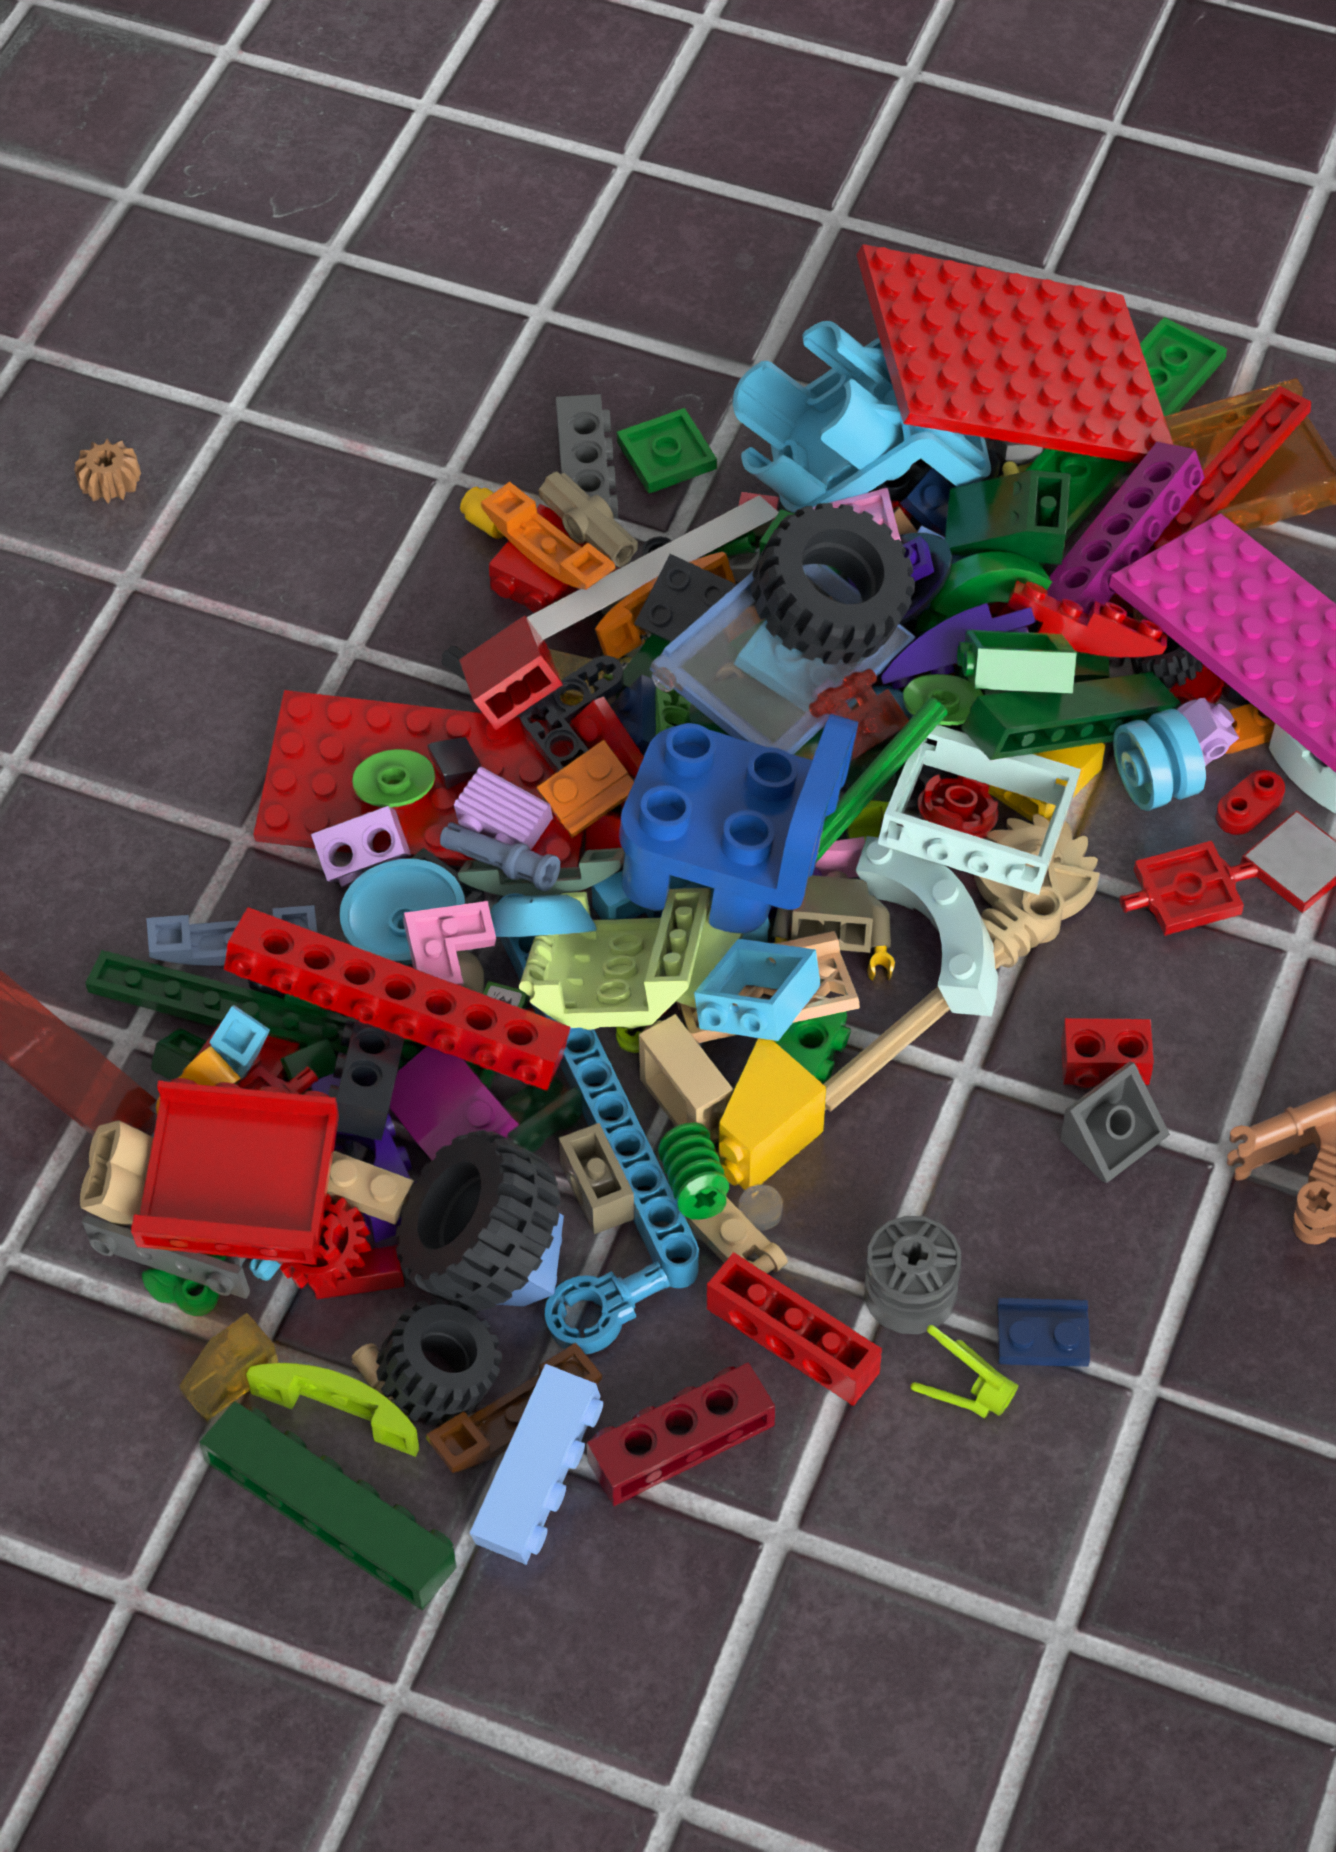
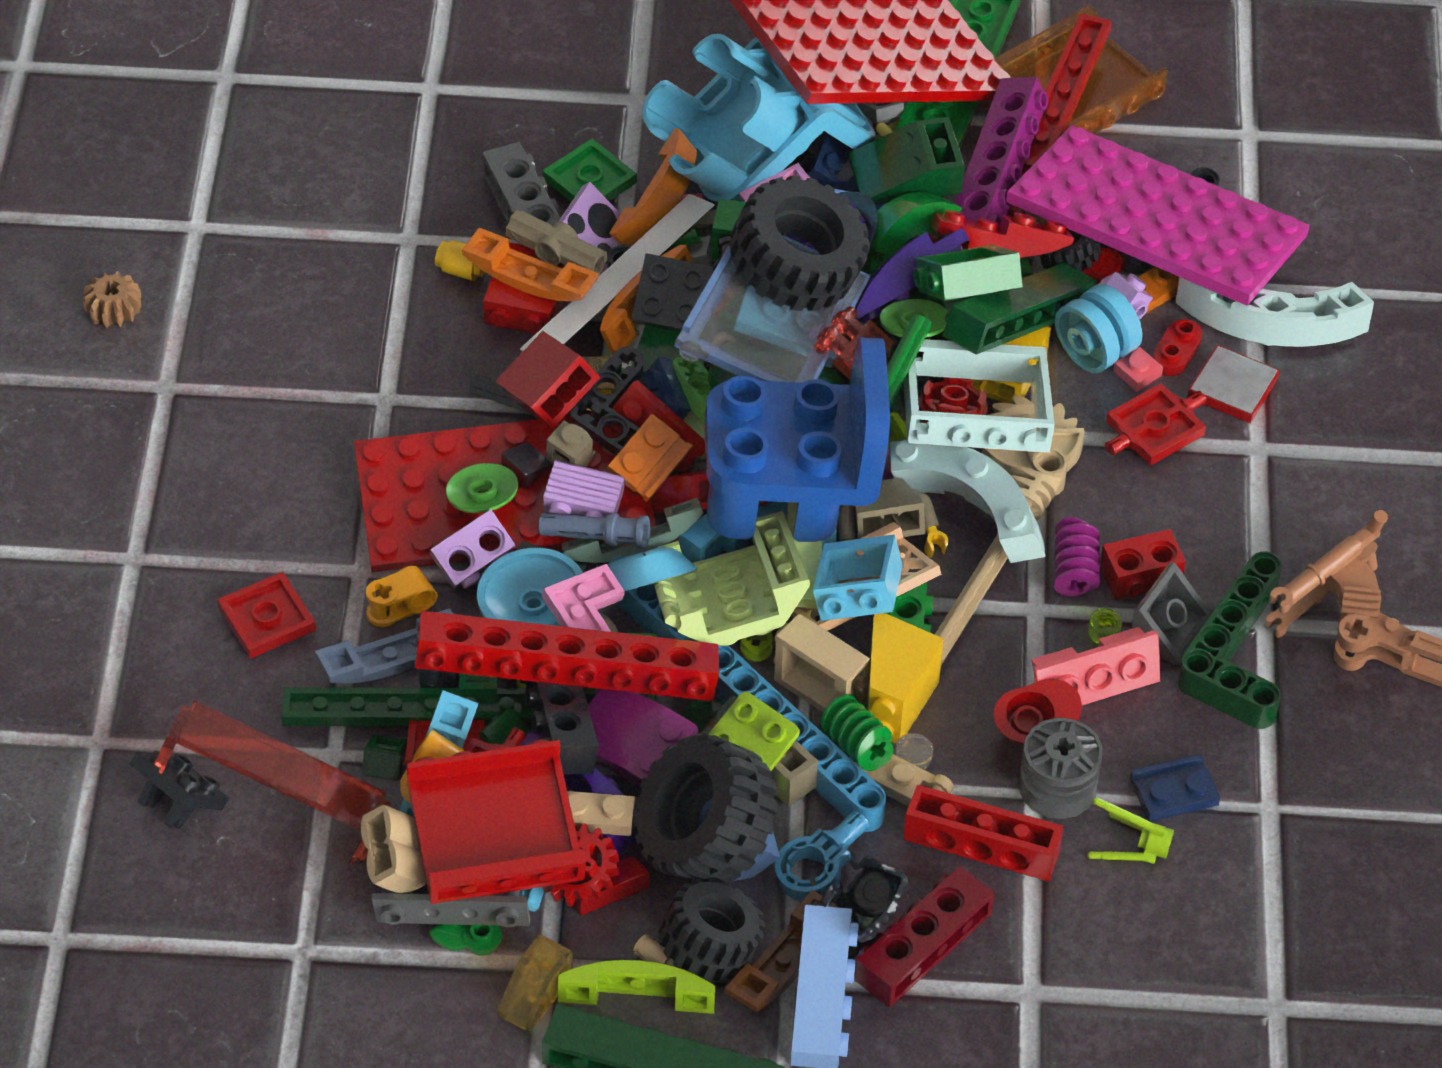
camera: 20 degrees left, 5 degrees down
(120, 862) = (266, 615): none -> red plate
(271, 876) = (402, 593): none -> light orange piece
(506, 755) = (571, 442): none -> dark tan brick
(573, 1145) = (757, 729): none -> lime bracket
(633, 1377) = (874, 896): none -> black hair
(646, 505) = (592, 218): none -> tile
(727, 489) = (660, 196): none -> orange slope
(910, 1192) = (1032, 704): none -> red piece
(1031, 1025) = (1076, 557): none -> magenta piece
(1032, 1167) = (1117, 666): none -> coral brick
(1033, 1125) = (1104, 617): none -> clear neon green bush
(1173, 1168) = (1206, 665): none -> dark green beam
(1194, 817) = (1138, 369): none -> coral plate

